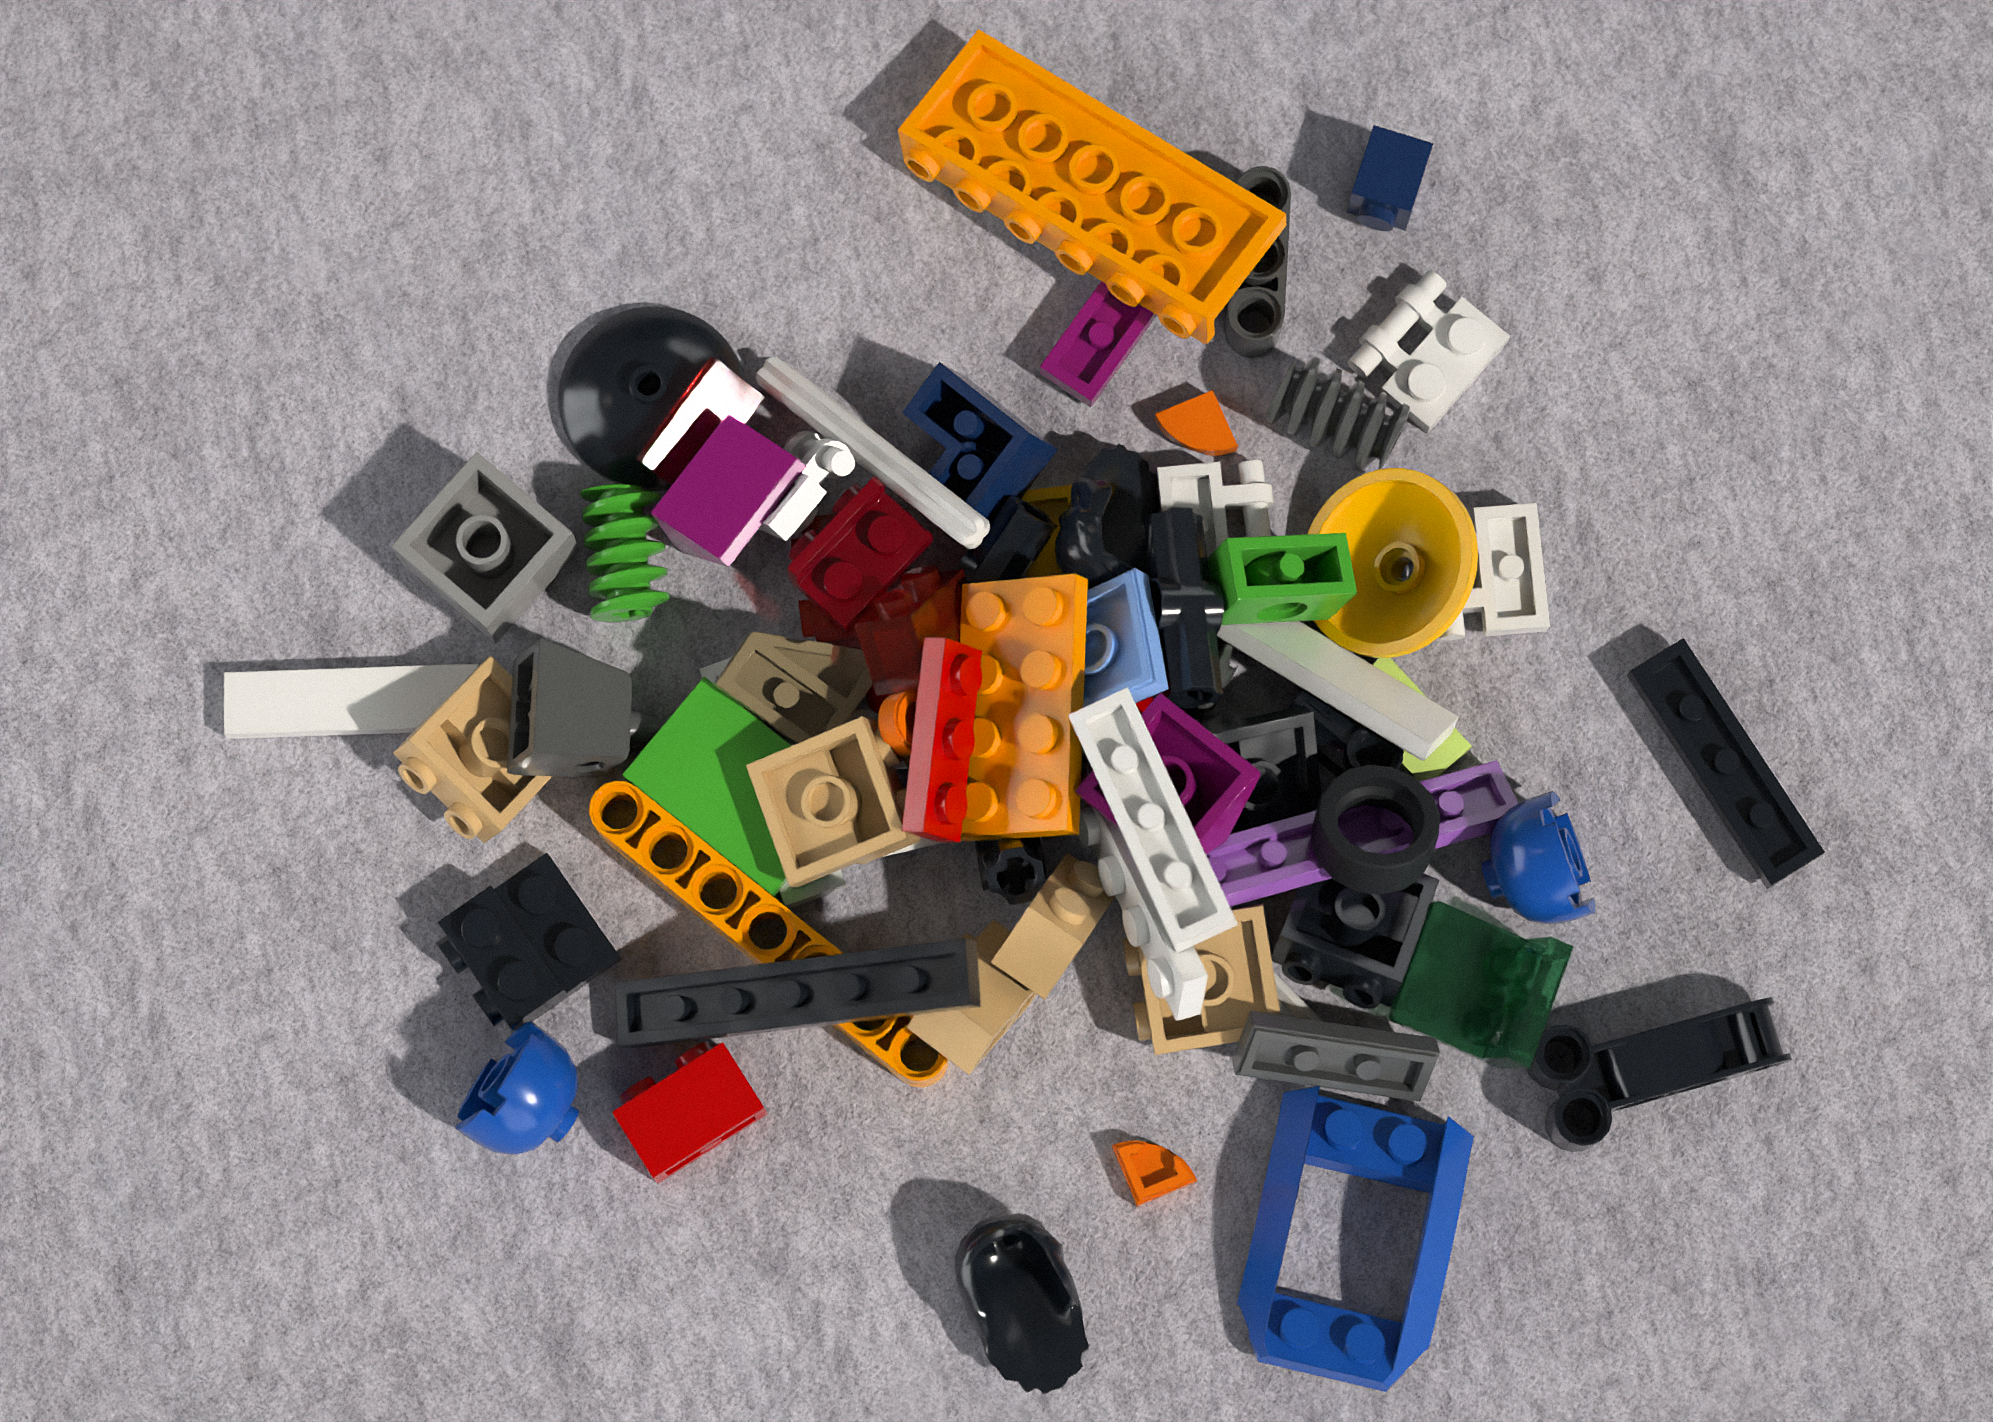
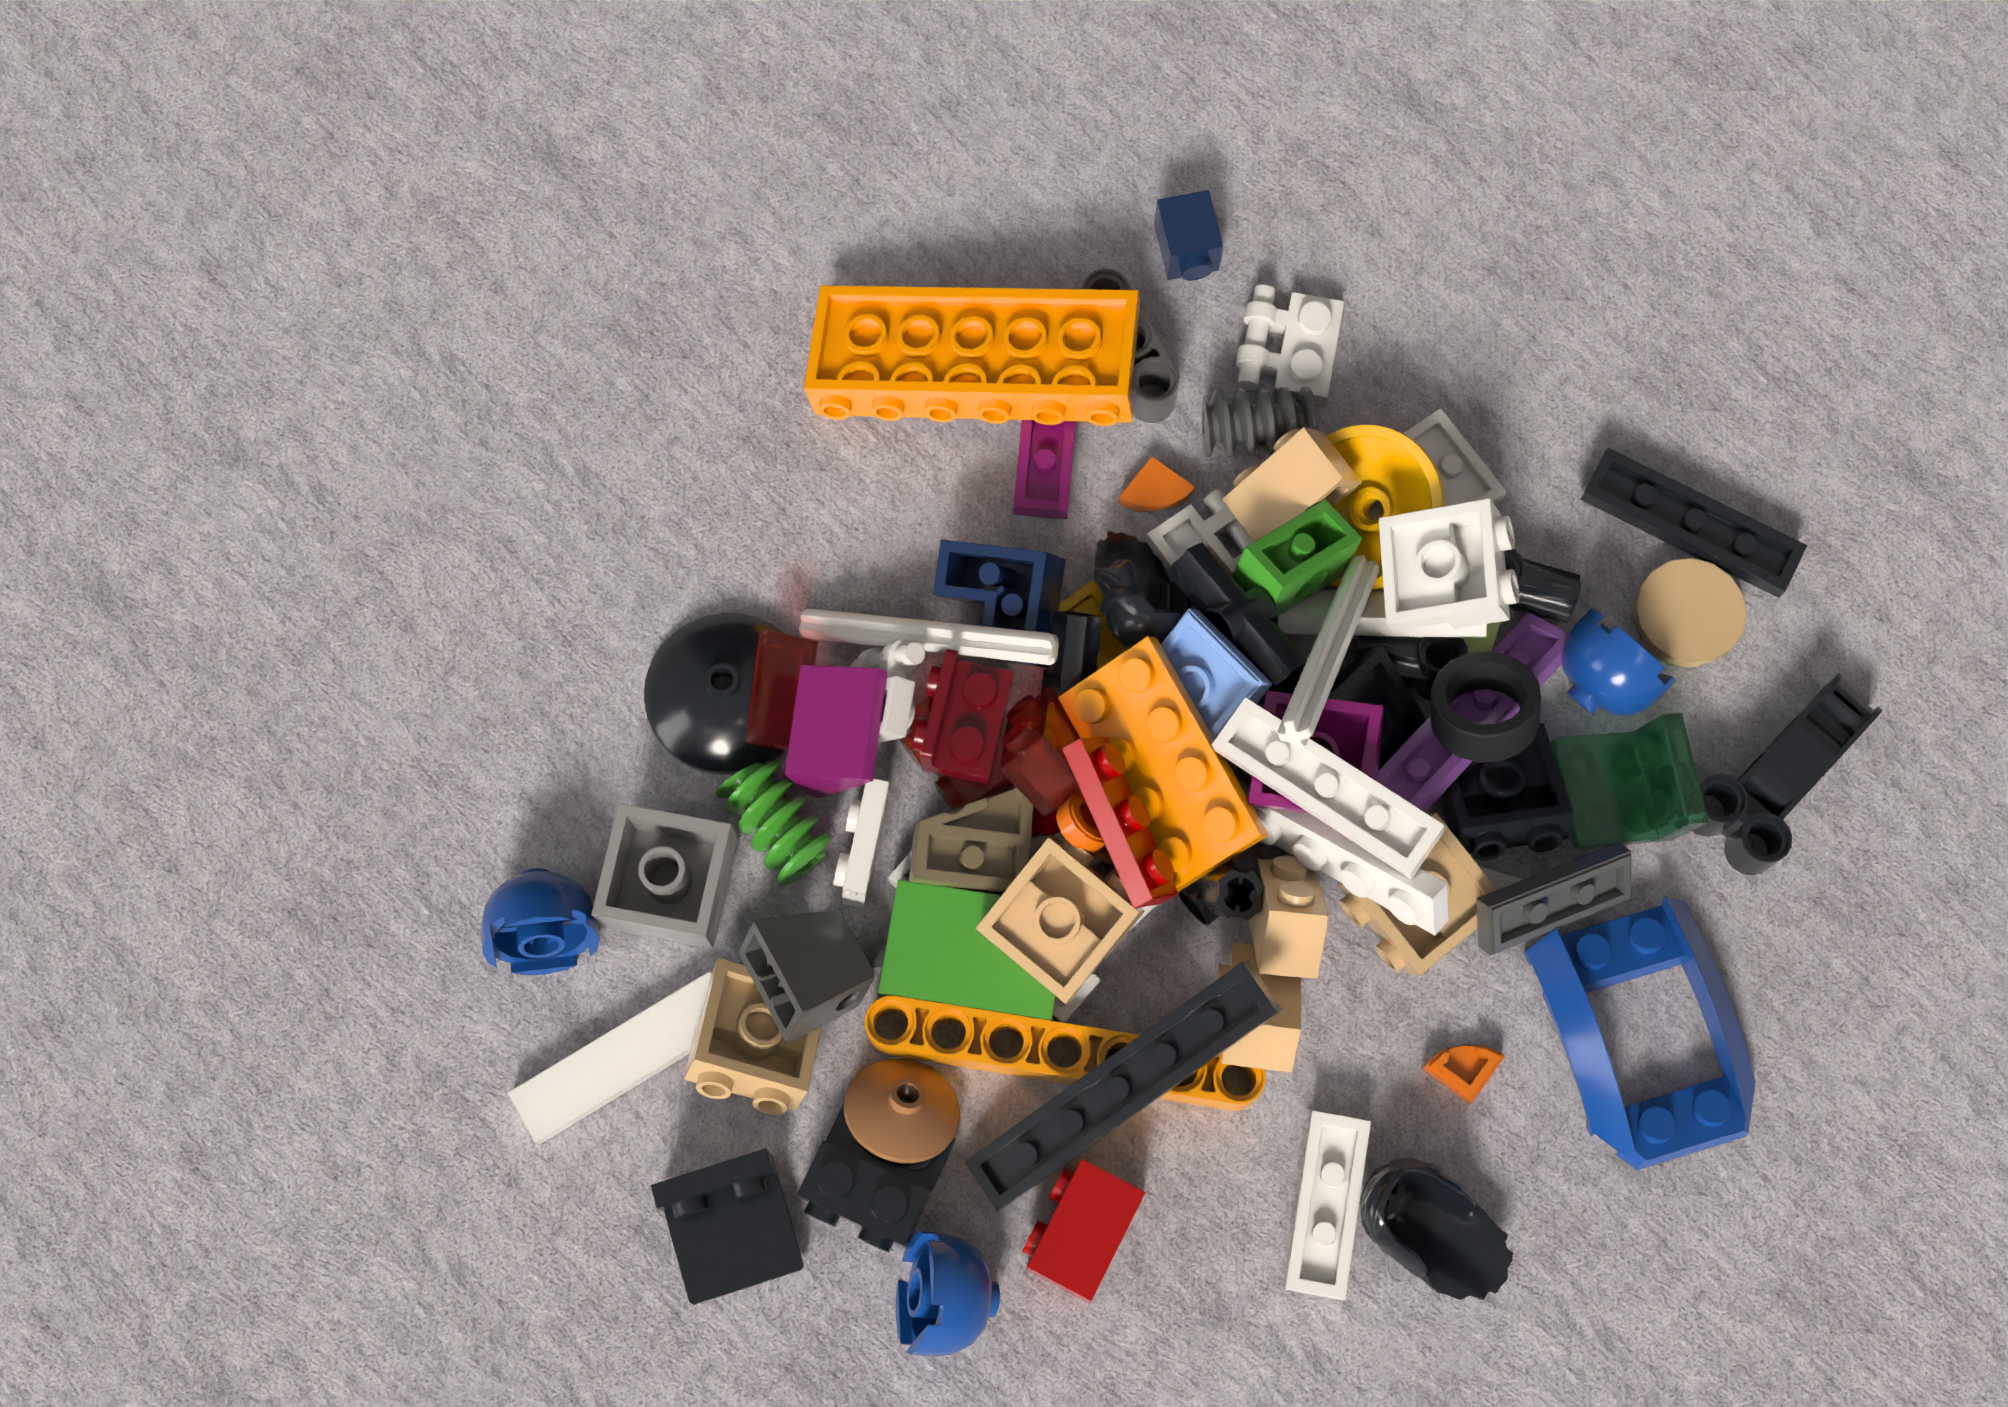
camera: 30 degrees left, 5 degrees down
(340, 525) = (538, 923): none -> blue cylinder
(360, 916) = (729, 1226): none -> black bracket
(570, 918) = (896, 1128): none -> medium nougat dish
(708, 605) = (866, 821): none -> white plate
(936, 1221) = (1327, 1205): none -> white plate
(1246, 686) = (1328, 652): none -> white axle
(1327, 495) = (1290, 482): none -> tan brick
(1420, 669) = (1447, 566): none -> white plate
(1514, 734) = (1544, 588): none -> black piece
(1664, 852) = (1689, 612): none -> tan tile

